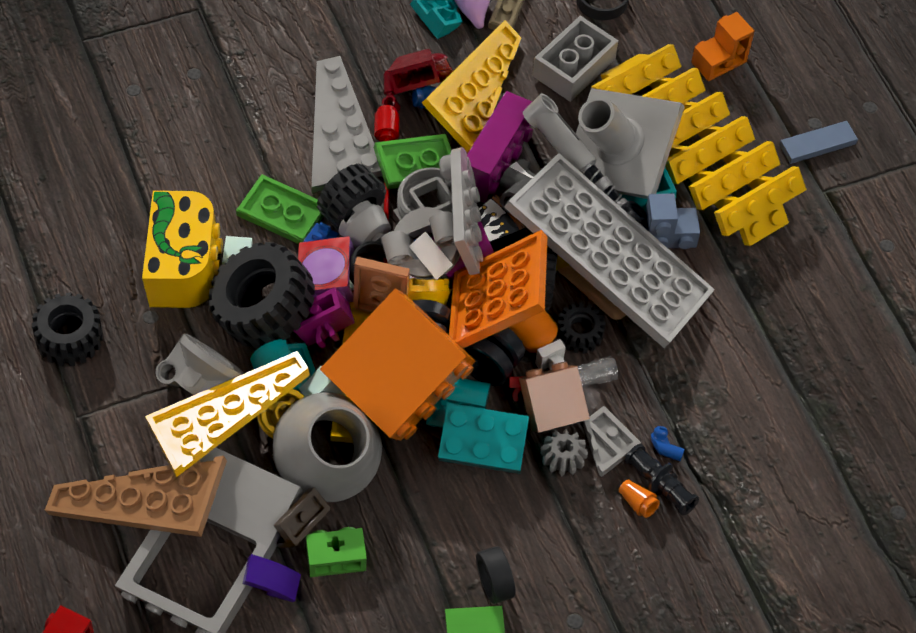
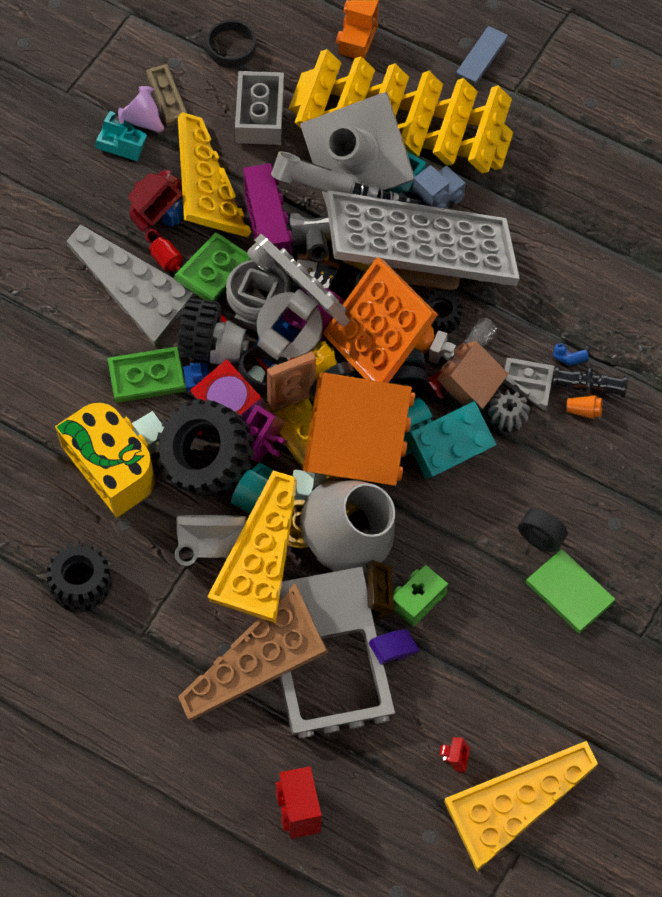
camera: 35 degrees left, 5 degrees up
(430, 255) = (303, 332): white sticker -> none

